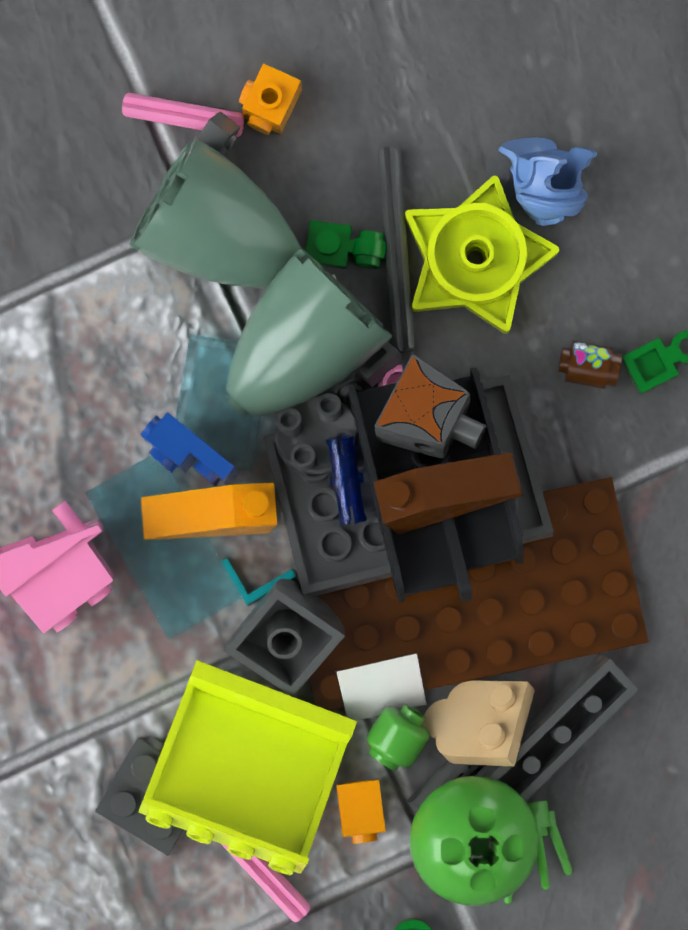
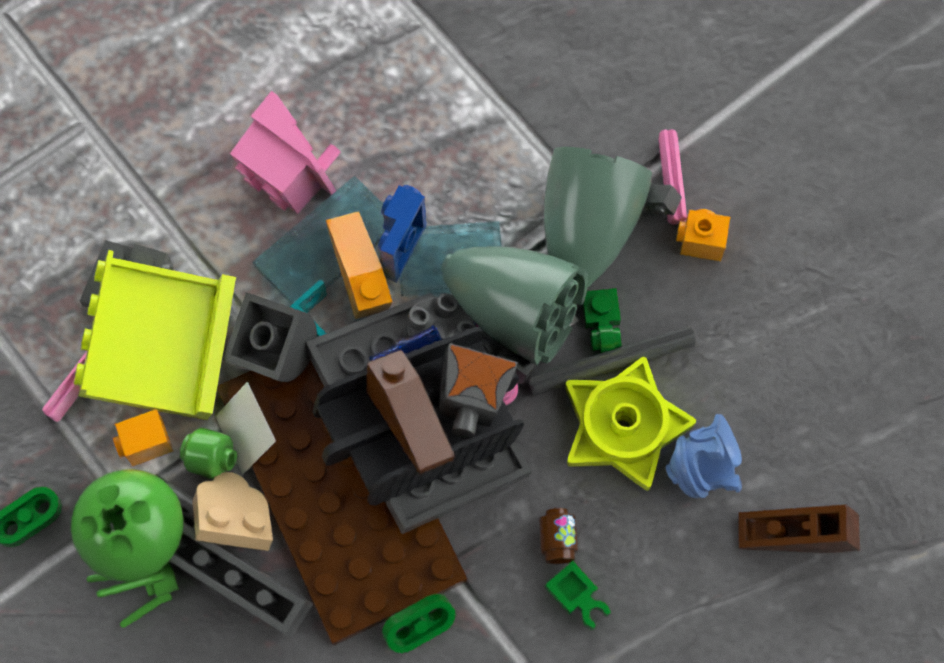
camera: 75 degrees right, 15 degrees down
(646, 101) = (801, 529): none -> reddish brown slope
(650, 542) = (418, 623): none -> green plate

